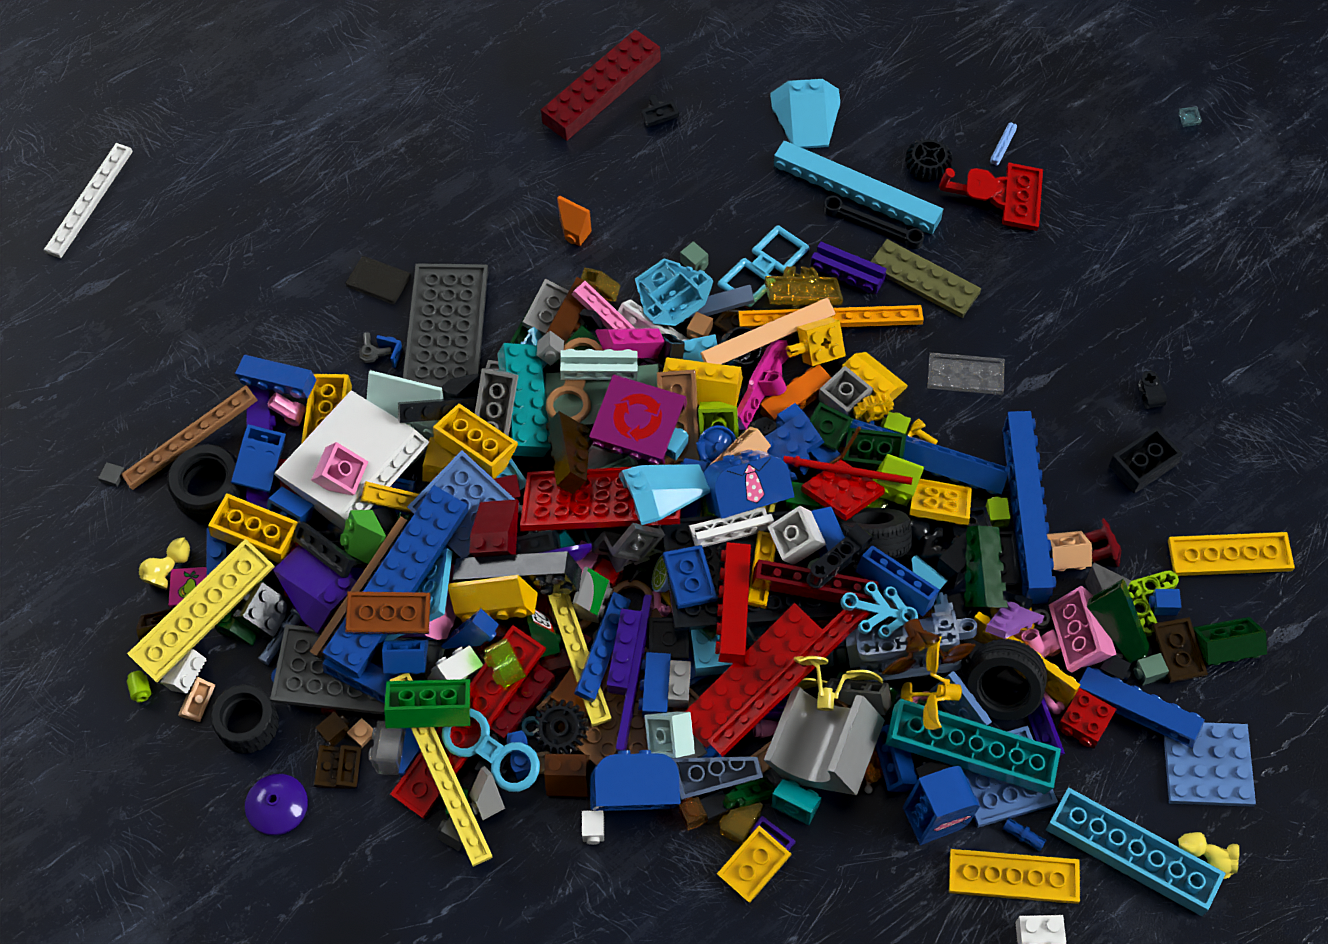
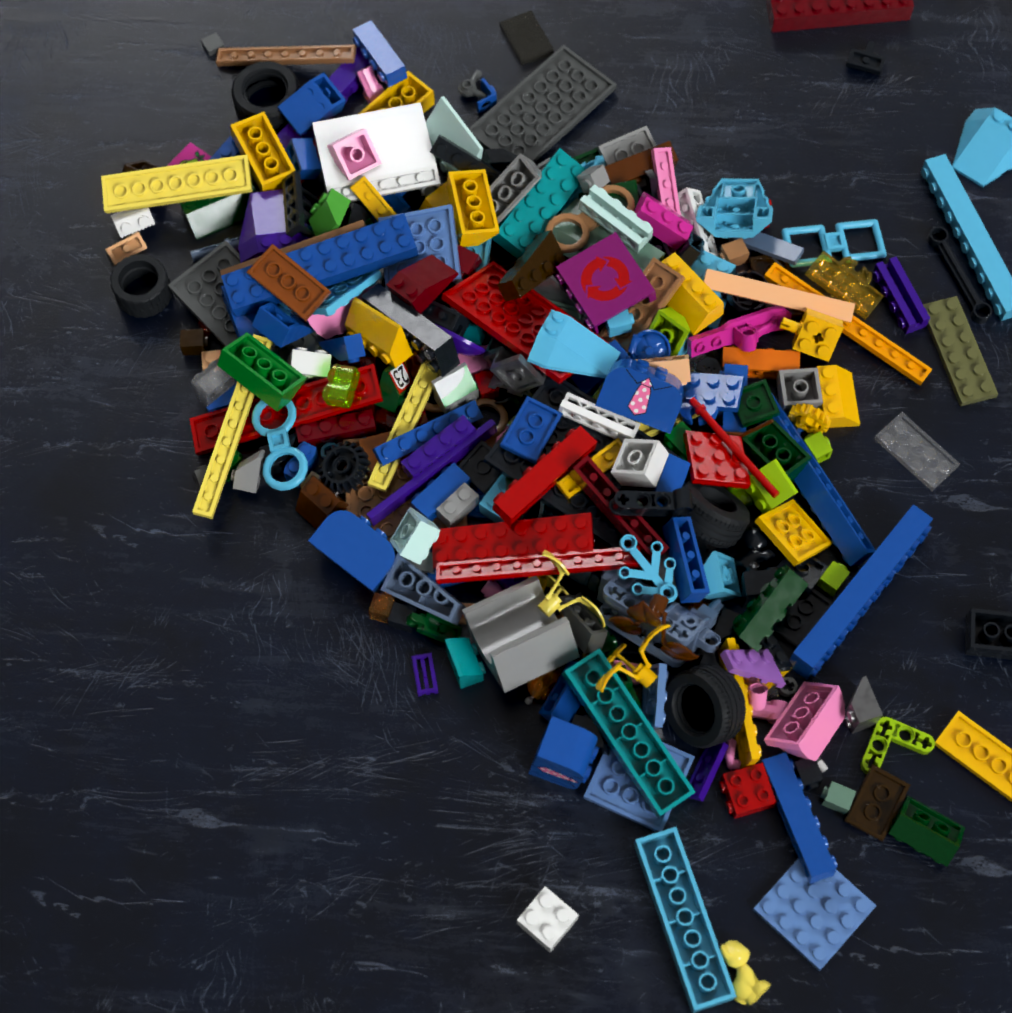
camera: 40 degrees right, 5 degrees up
(138, 686) = (94, 208): lime brick -> none
(155, 570) = (178, 134): light yellow animal -> none
(263, 610) = (220, 218): black brick -> none
(282, 814) = (113, 372): dark purple dish -> none
(337, 767) = (173, 370): dark brown slope -> none
(574, 221) = (713, 98): orange slope -> none
(592, 827) = (304, 558): white brick -> none
(604, 284) = (688, 163): clear yellow slope -> none
(694, 257) = (782, 196): sand green brick -> none
(739, 822) = (410, 642): clear yellow slope -> none
(754, 864) = (391, 681): yellow plate -> none
(915, 429) = (829, 463): yellow plant -> none
(1014, 876) = (575, 857): yellow plate -> none
(1024, 834) = (613, 833): blue pin -> none
(1070, 550) = (862, 652): light nougat slope -> none
(1112, 549) = (901, 680): dark red connector -> none
(1120, 620) = (844, 738): dark green slope -> none
(1165, 602) = (903, 757): blue brick -> none

